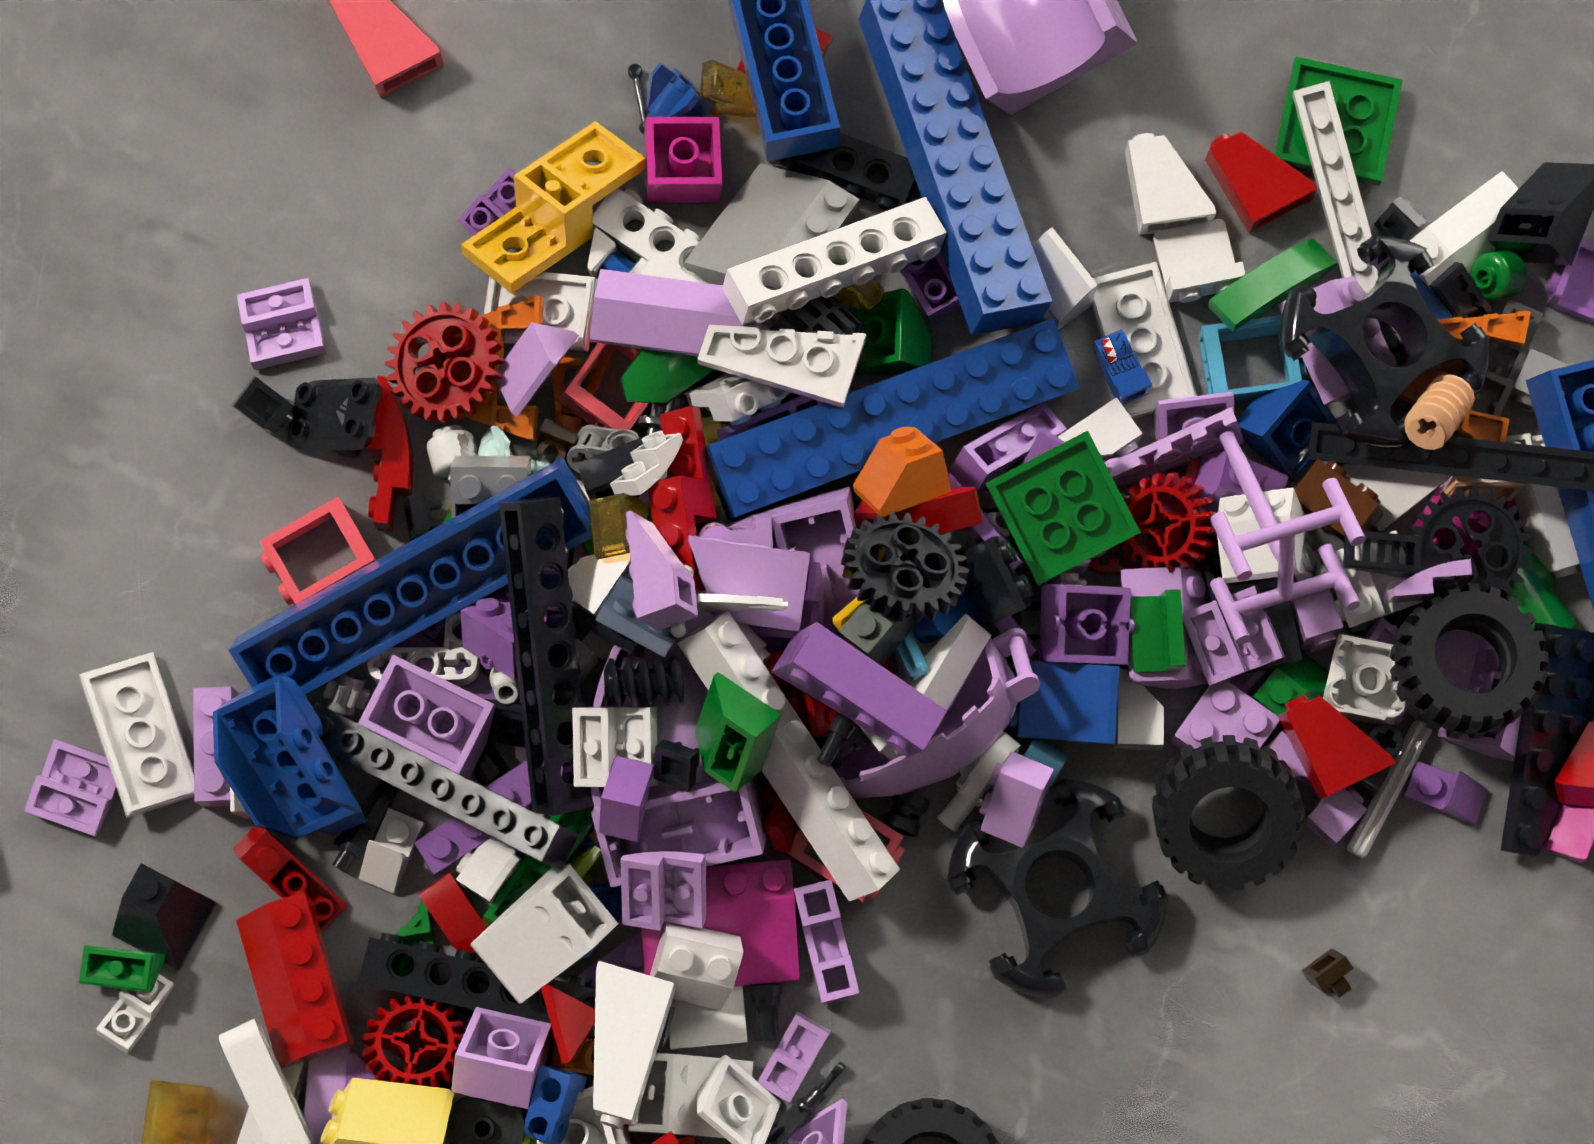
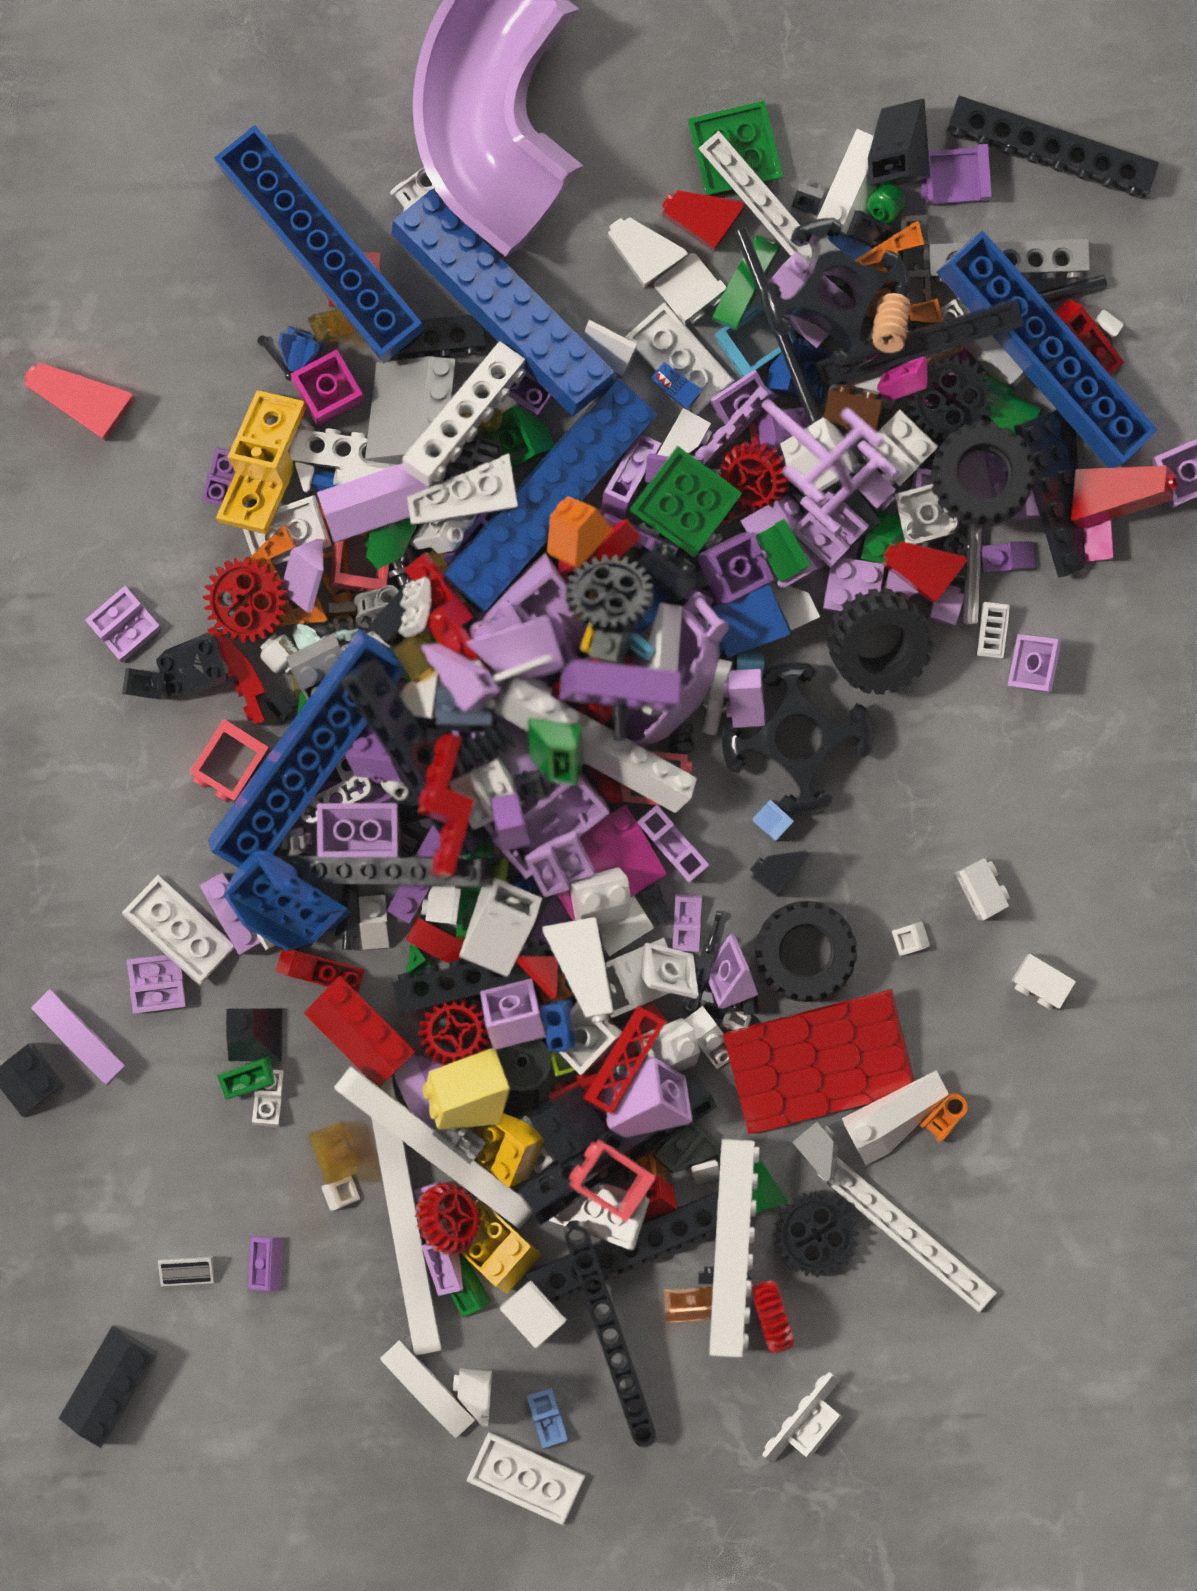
camera: 25 degrees left, 10 degrees up
(551, 732) = (445, 805): none -> red bracket
(946, 1045) = (777, 870): none -> black slope
(972, 979) = (772, 820): none -> light blue panel
(1287, 367) = (784, 342): none -> black piece
(1329, 972) = (988, 706): dark brown tile -> none
(1402, 870) = (994, 607): none -> white slope
(1413, 556) = (917, 421): black slope -> none
(1417, 947) = (1034, 663): none -> lavender slope
(1420, 494) = (903, 379): none -> dark pink slope
(1421, 584) = (929, 442): lavender slope -> none

